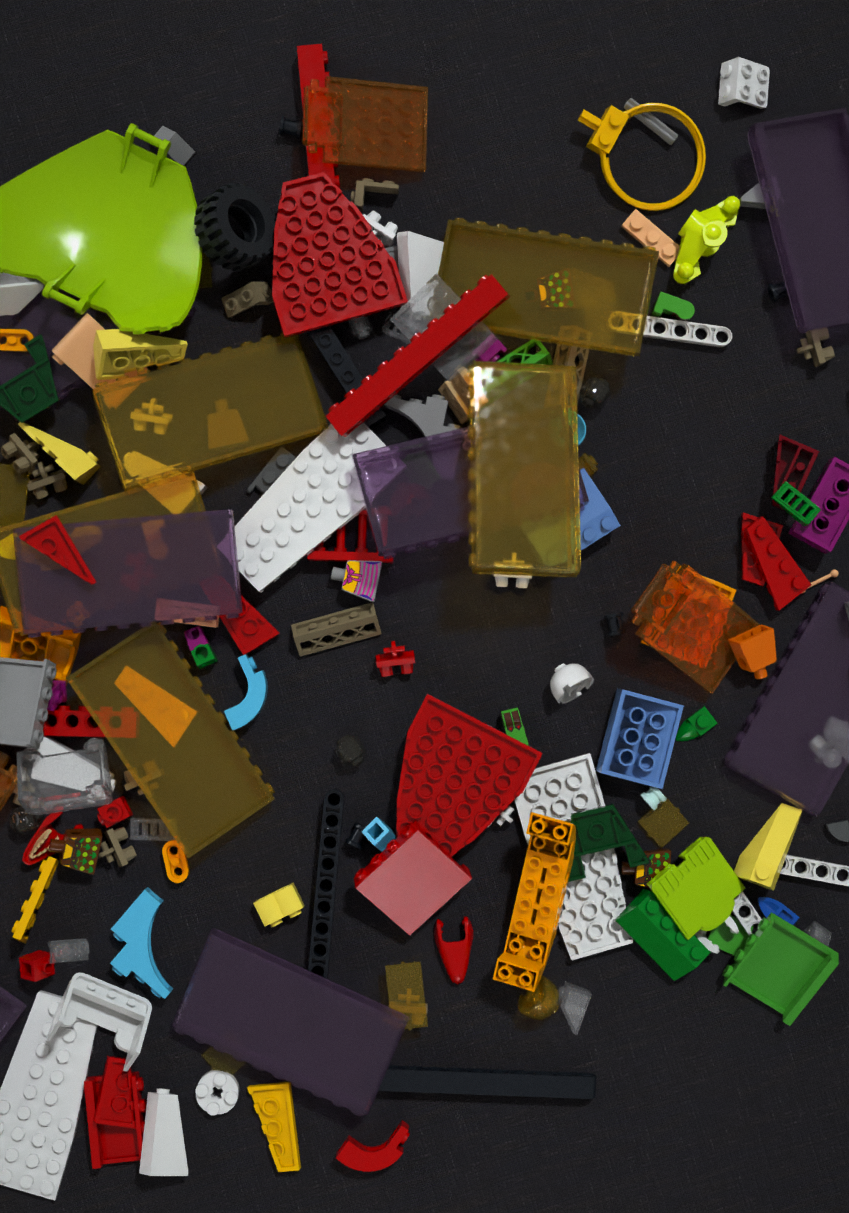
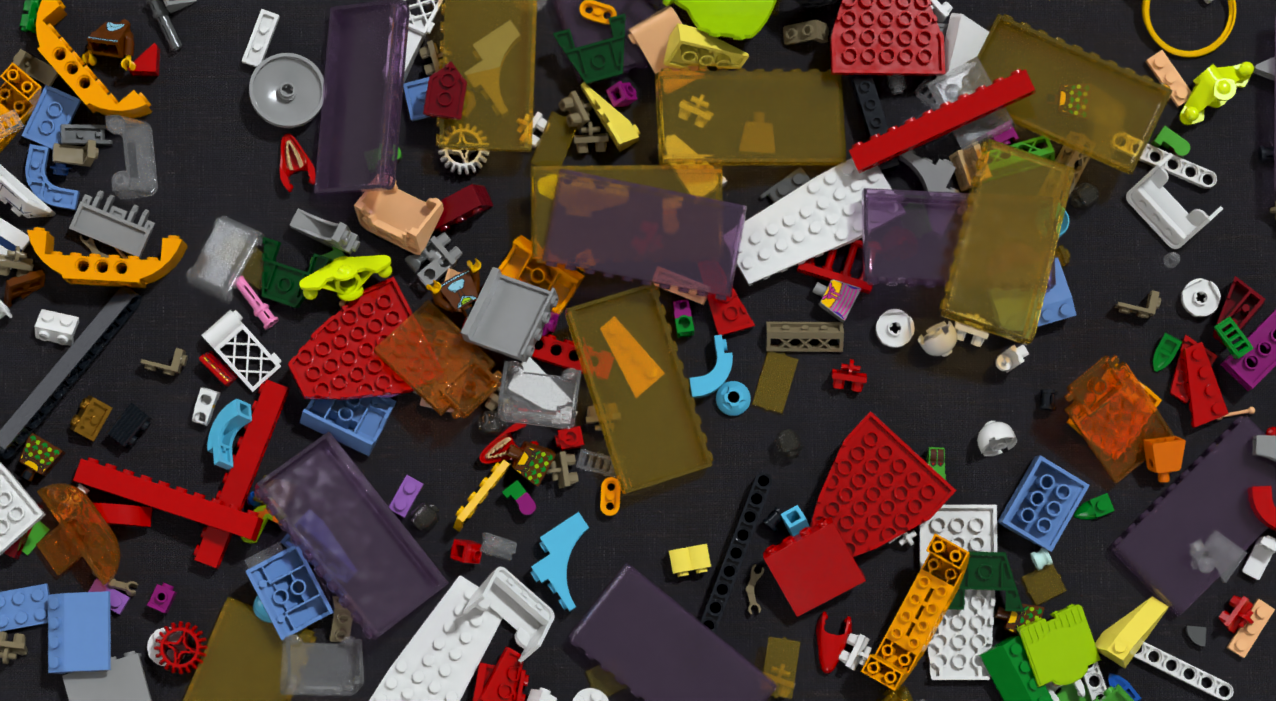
camera: 15 degrees right, 5 degrees down
(55, 543) = (594, 191): red wing -> none
(70, 418) = (626, 92): none -> magenta brick
(81, 889) = (525, 502): none -> leg
(287, 709) = (728, 407): none -> medium azure piece
(318, 686) = (775, 381): none -> clear yellow piece
(352, 916) = (750, 589): none -> dark tan piece
(441, 598) = (886, 321): none -> white plate
(481, 593) = (939, 340): none -> white cylinder
(487, 953) = (858, 654): none -> white hips
(562, 592) = (1011, 358): none -> white hips
(685, 385) = (1163, 211): none -> white windscreen
(699, 487) = (1152, 304): none -> dark tan bracket
(706, 435) = (1171, 259): none -> clear hinge
(726, 536) = (1165, 351): none -> green plate
(749, 455) = (1195, 307): none -> white plate

